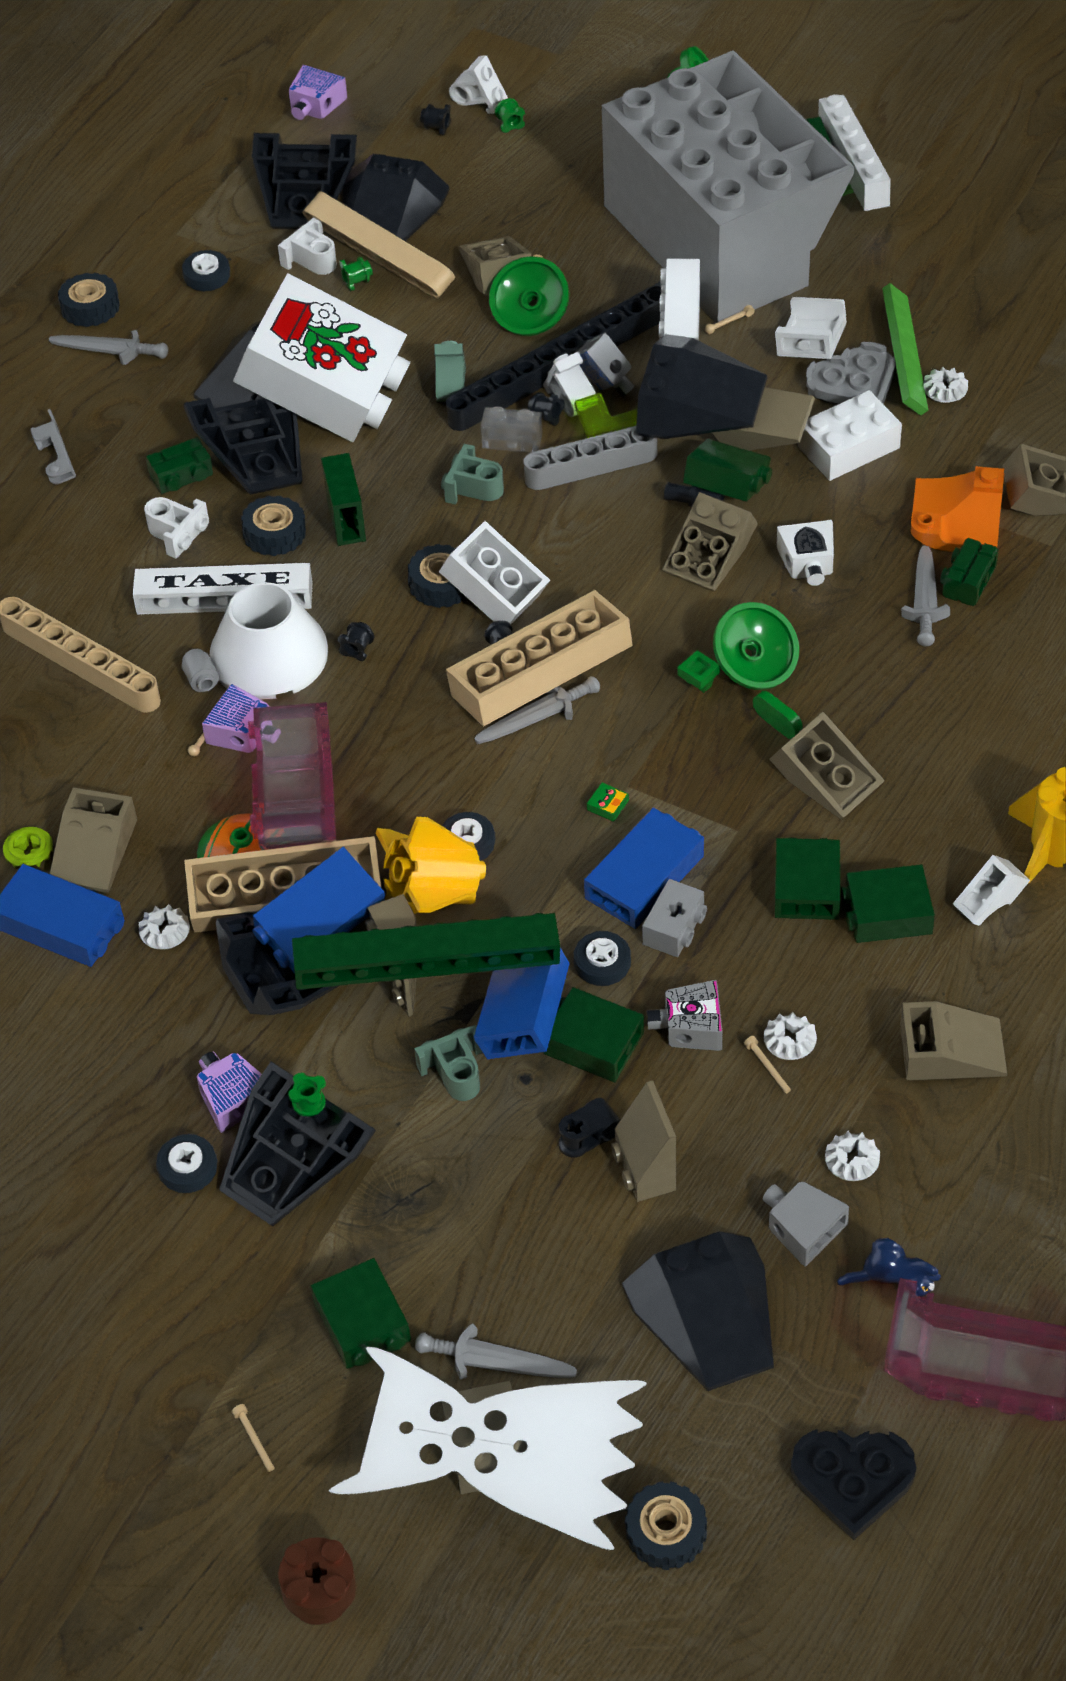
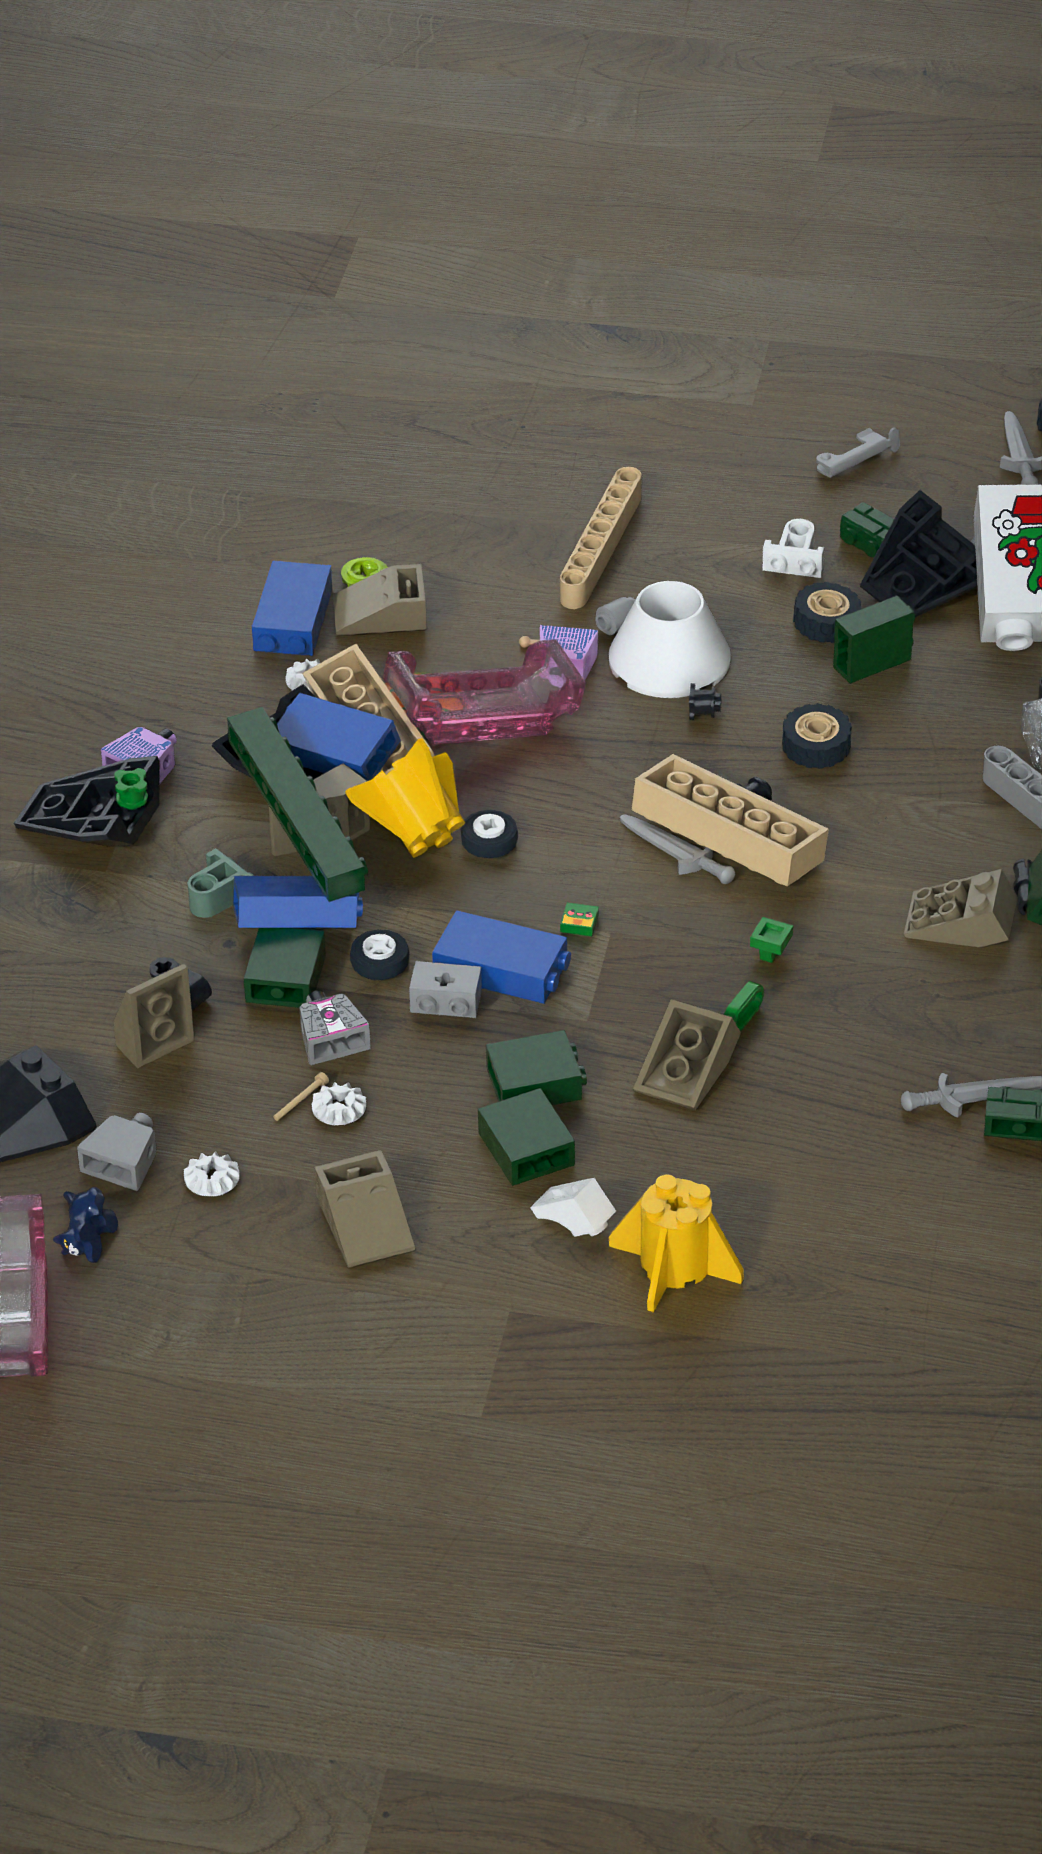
camera: 70 degrees right, 10 degrees down
(183, 1175) = (56, 755): black wheel -> none
(213, 586) = (730, 603): white brick -> none
(472, 477) = (964, 723): sand green pin -> none
(494, 575) = (815, 758): white brick -> none
(766, 635) = (807, 951): green dish -> none
(807, 550) = (987, 985): white torso -> none

